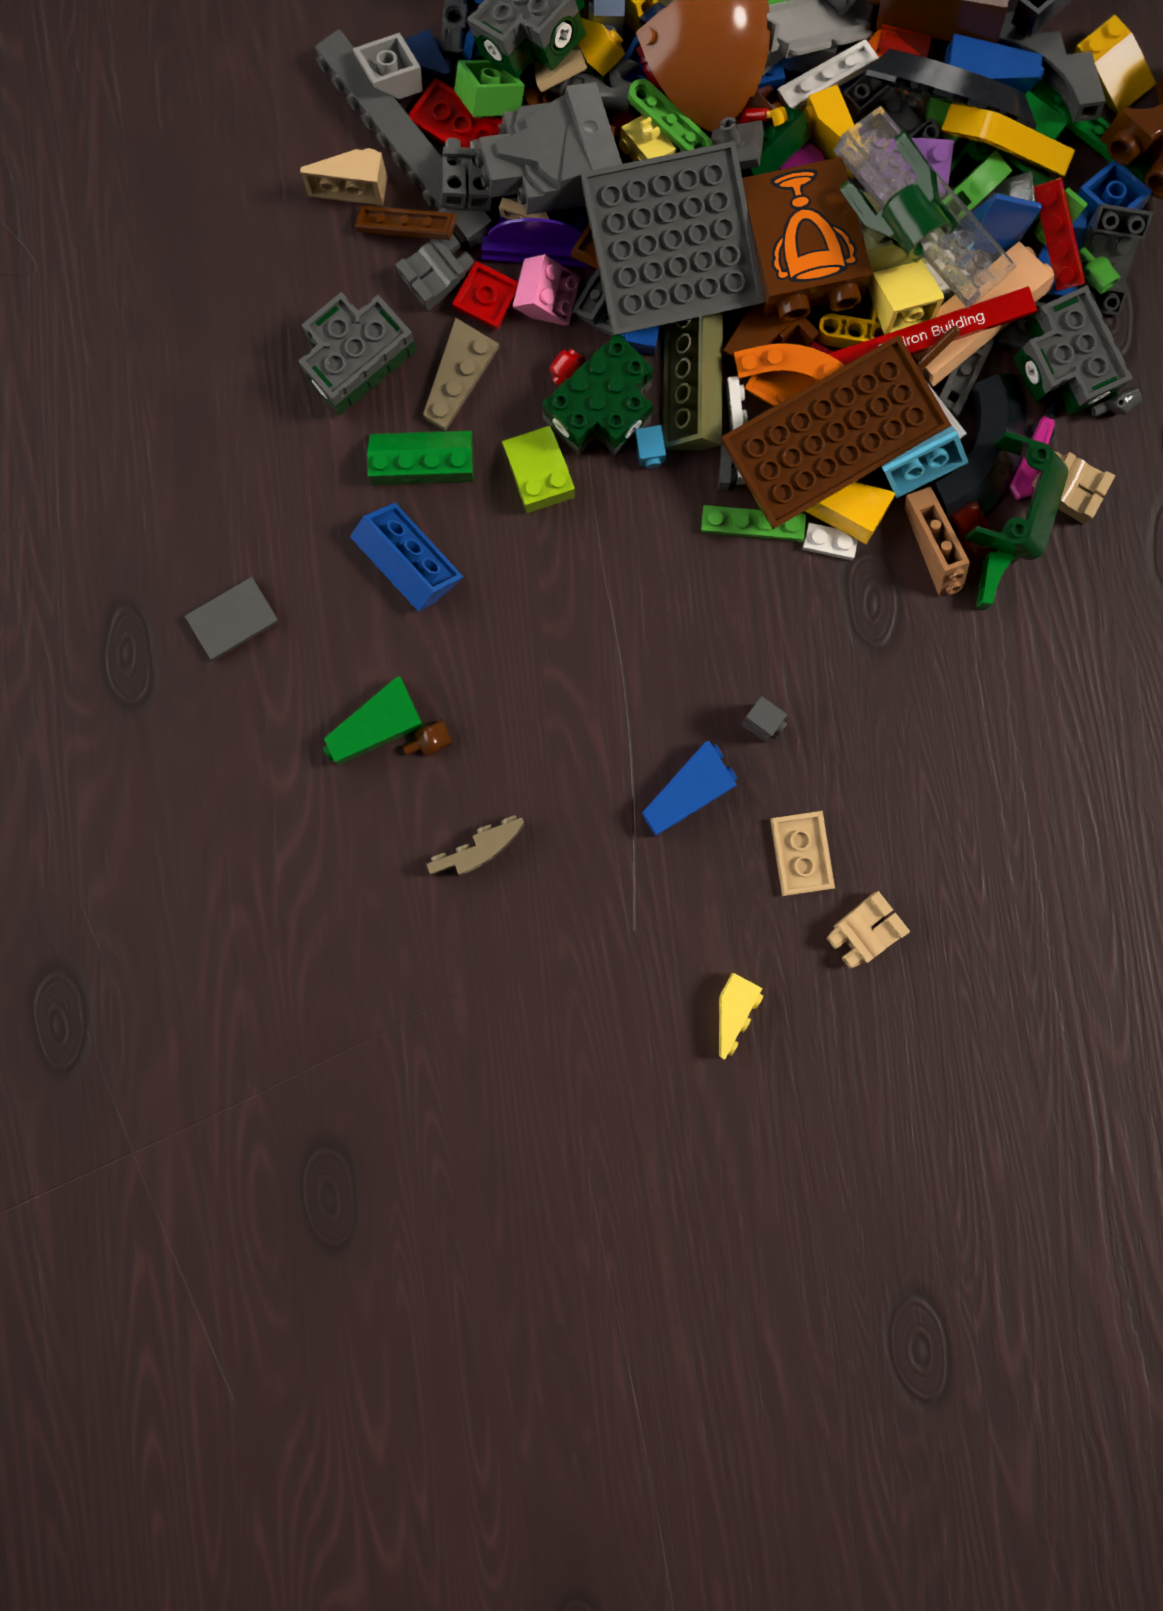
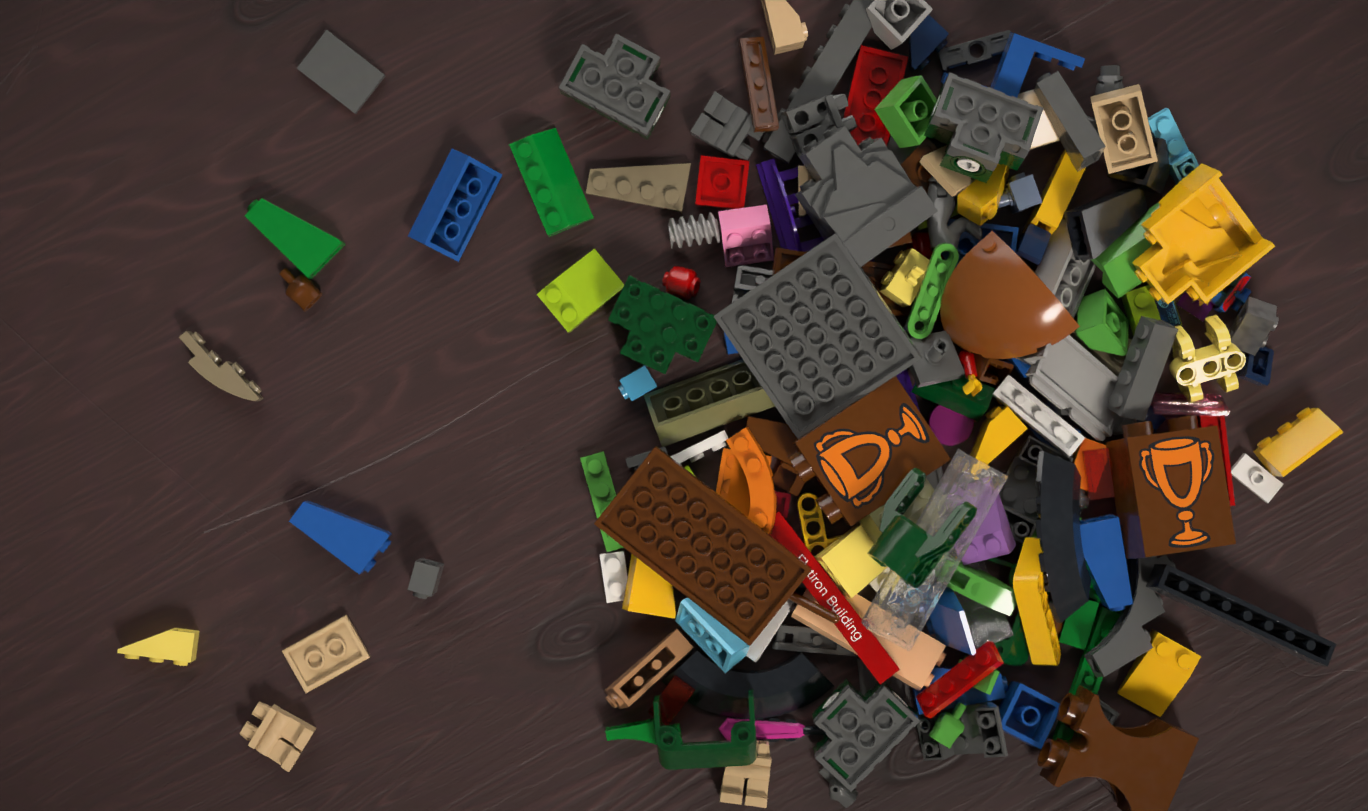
camera: 65 degrees right, 5 degrees up
(519, 337) = (693, 230): none -> light grey piece

